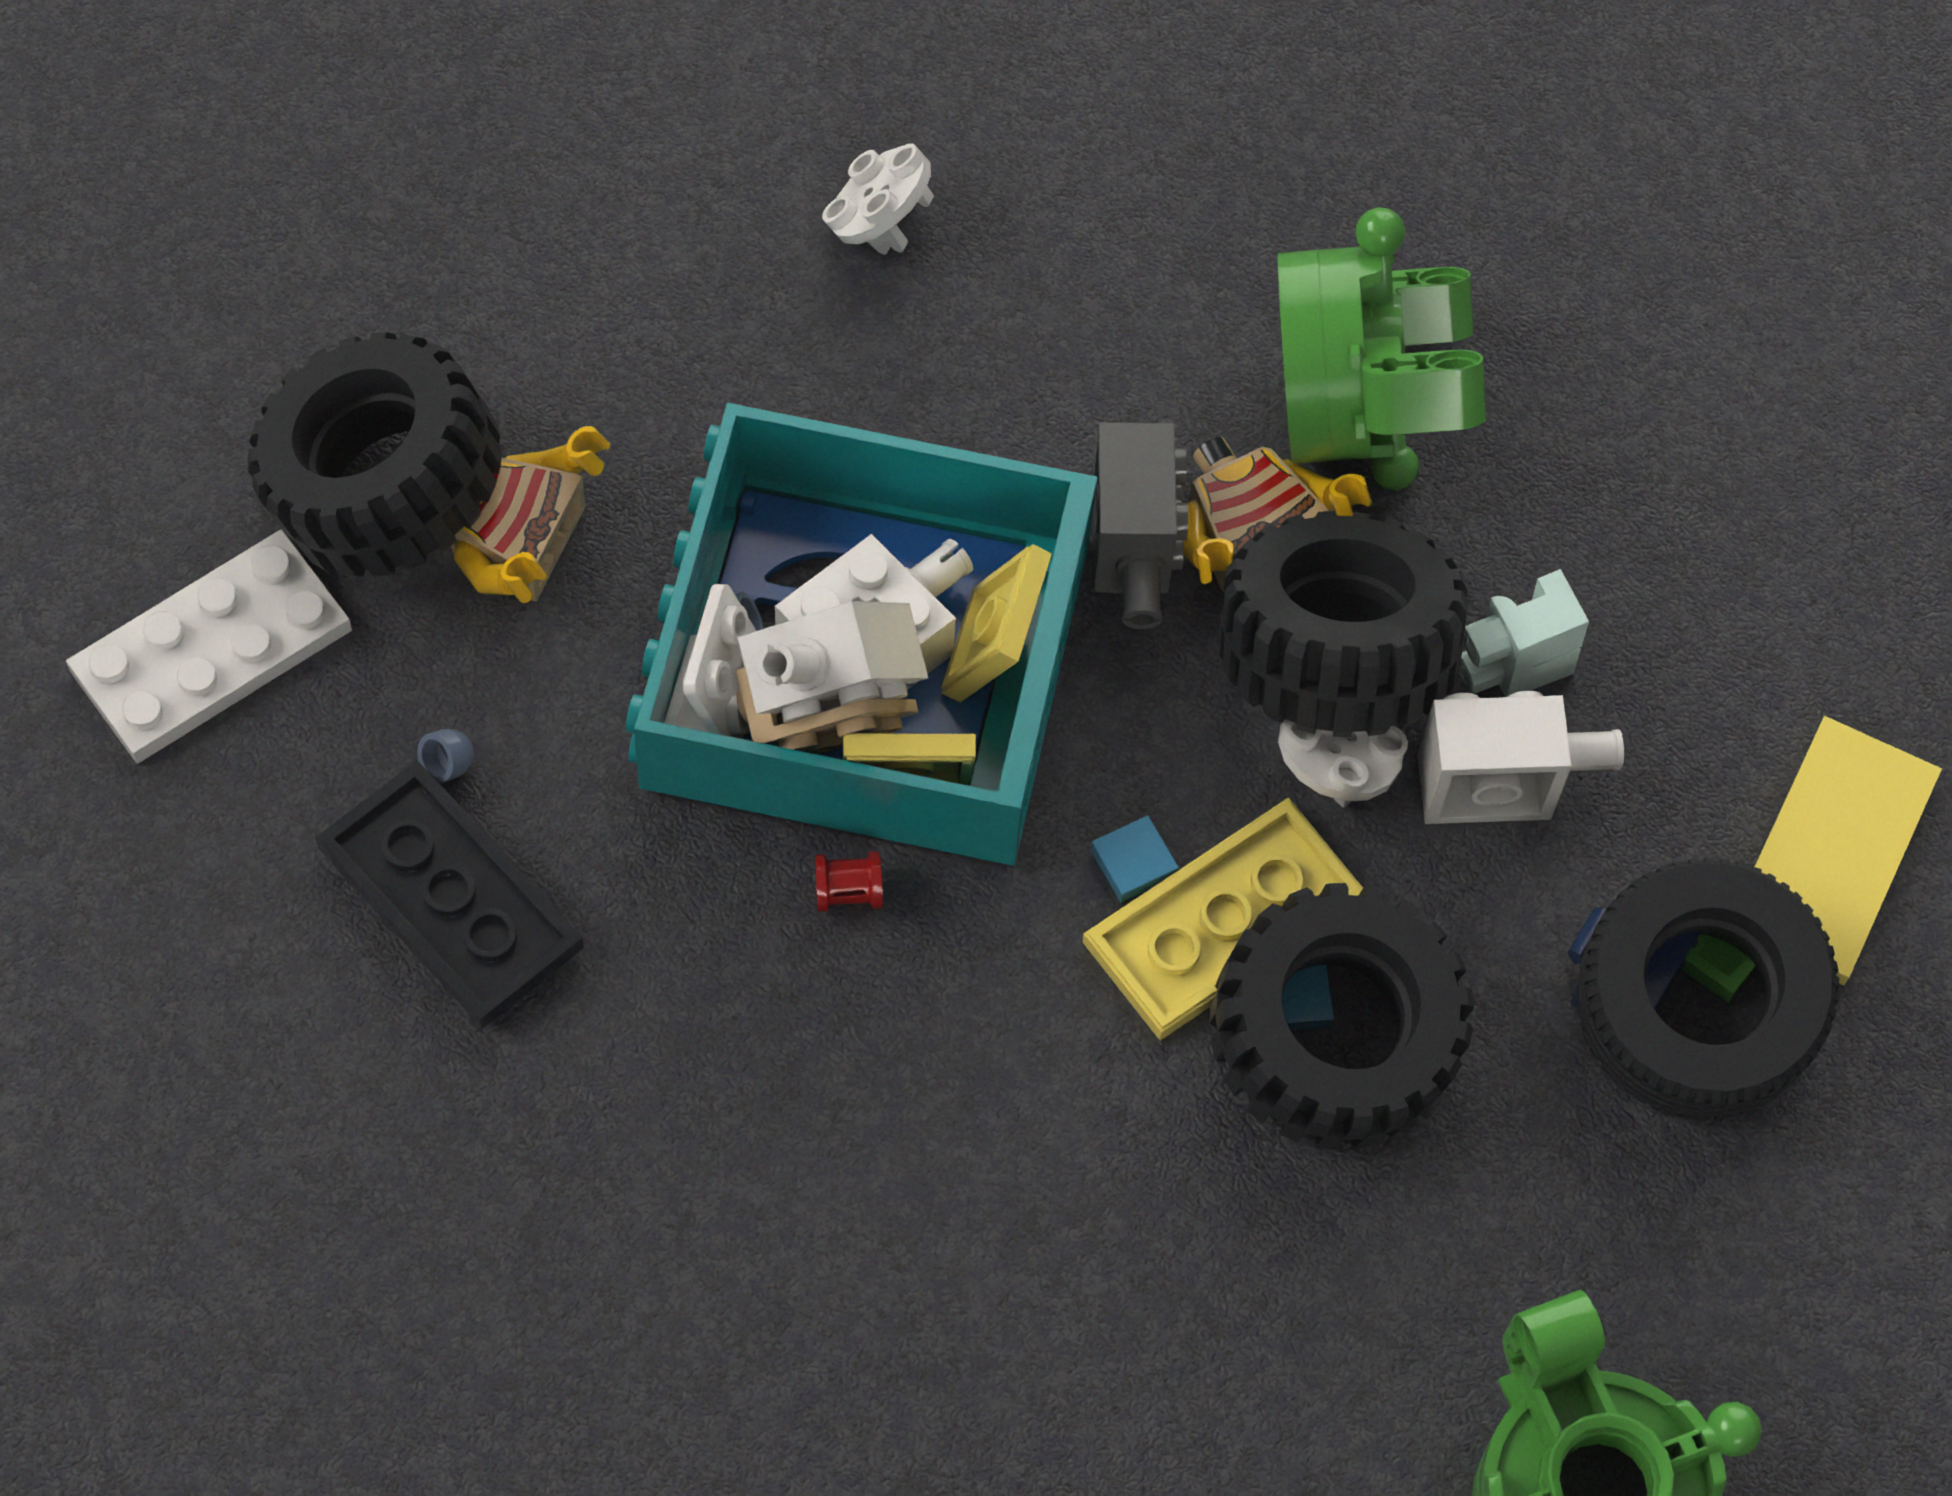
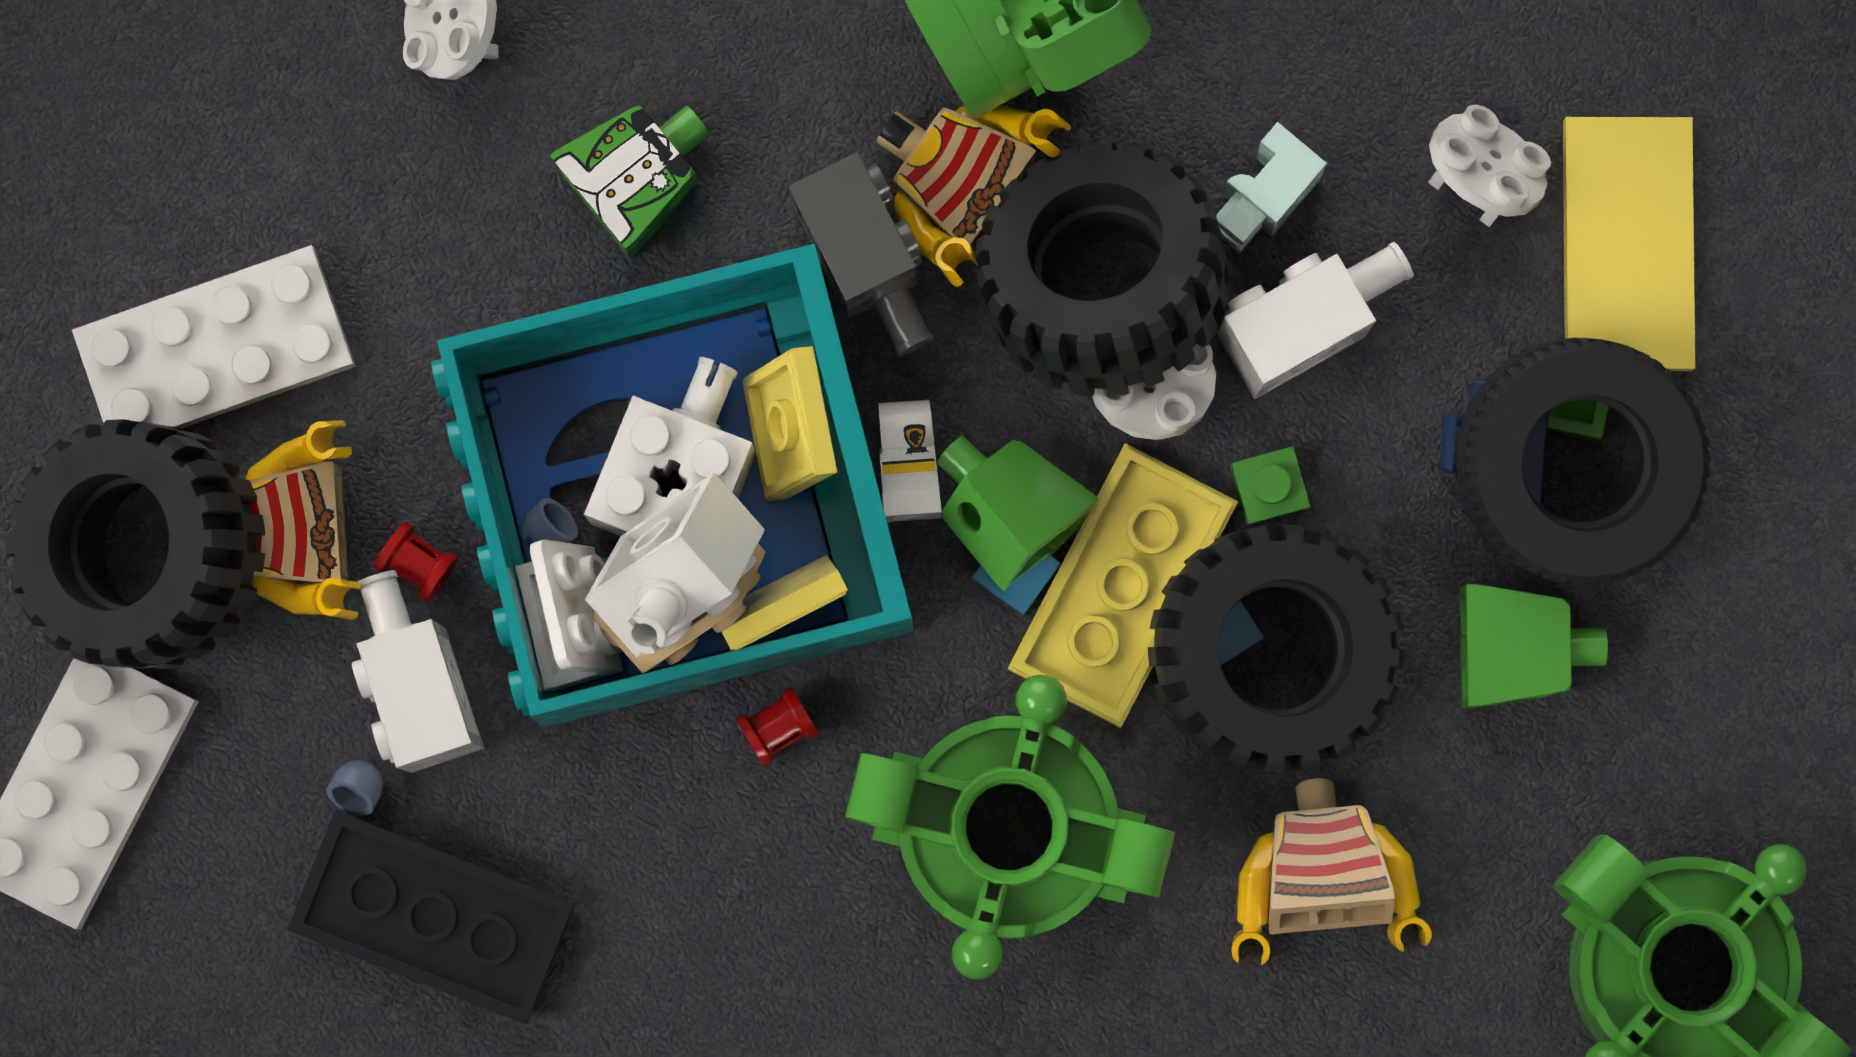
camera: 20 degrees left, 20 degrees up
(545, 686) = (413, 683): none -> white brick
(548, 358) = (217, 344): none -> white plate
(606, 599) = (416, 561): none -> red bush
(969, 382) = (633, 171): none -> torso
(998, 1130) = (1092, 841): none -> bright green piece
(1083, 723) = (908, 462): none -> white leg
(1160, 792) = (1011, 507): none -> bright green torso
(1290, 1241) = (1326, 873): none -> torso
(1411, 882) = (1270, 486): none -> bright green plate
(1571, 1137) = (1520, 646): none -> bright green torso
(1734, 716) = (1488, 164): none -> white plate

